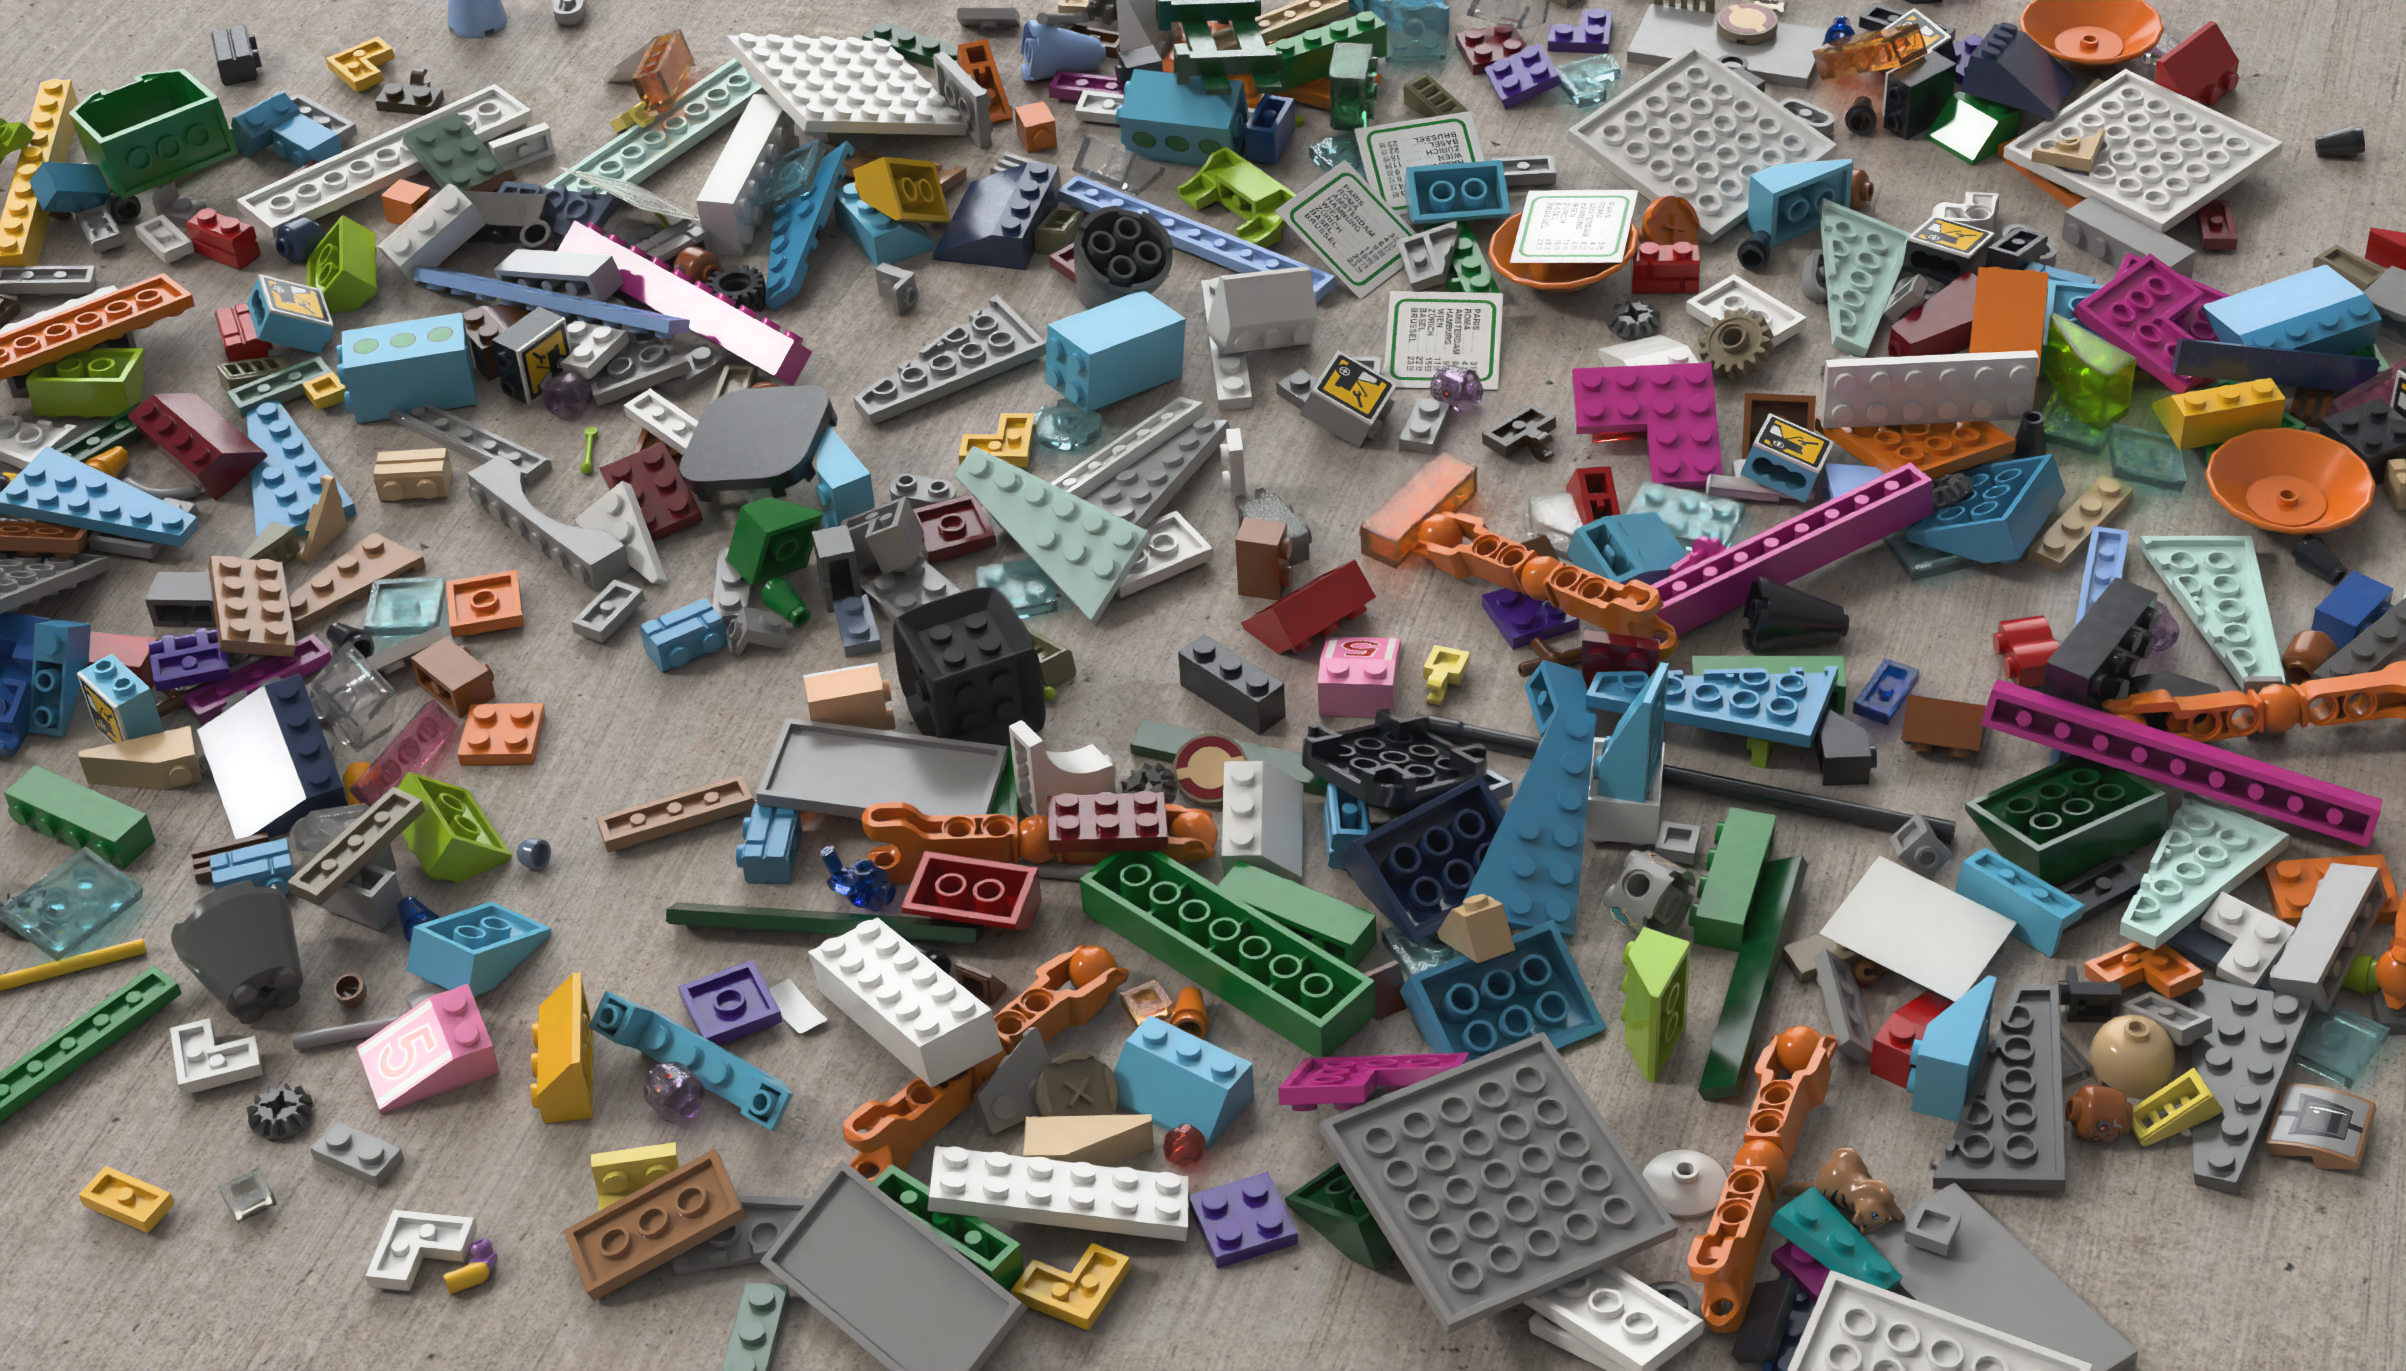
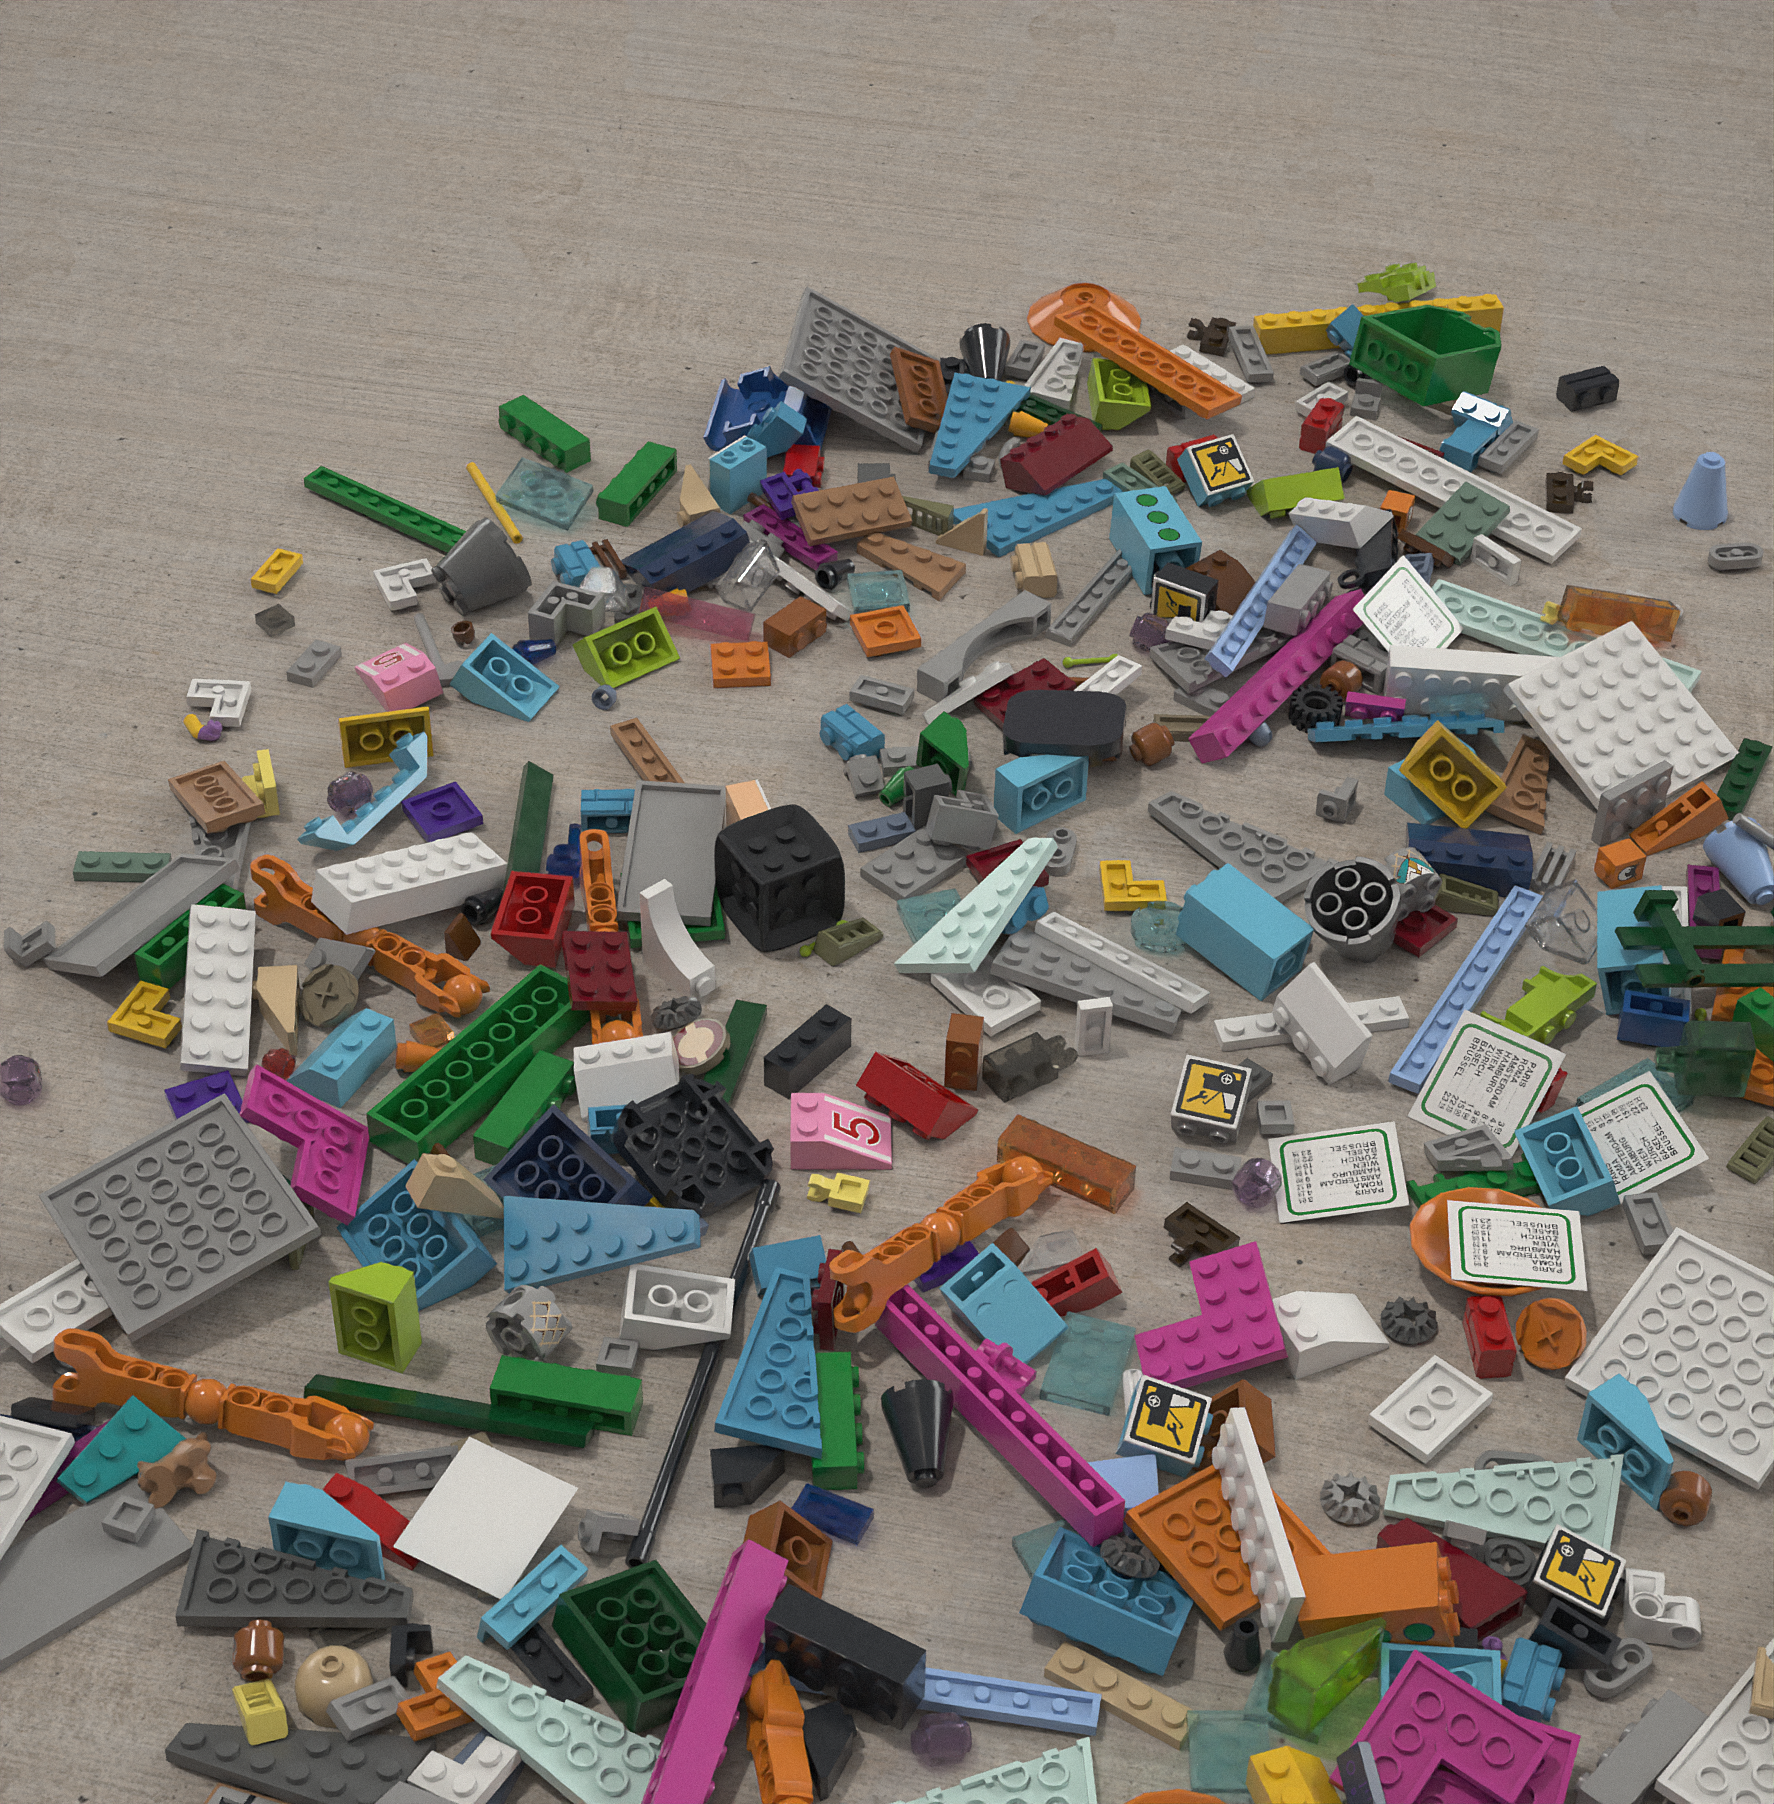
camera: 80 degrees right, 0 degrees up
(289, 1120) = (365, 624): dark grey gear -> none
(356, 846) = (569, 591): dark tan plate -> none
(755, 244) = (1373, 706): none -> dark pink plate
(1058, 230) = (1415, 880): none -> light grey brick
(1636, 746) = (670, 1279): medium azure slope -> none
(1686, 1182) = (226, 1364): white dish -> none
(1736, 344) = (1358, 1391): dark tan gear -> none
(1755, 251) = (1551, 1417): black cone -> none
(2025, 649) = (907, 1618): red brick -> none

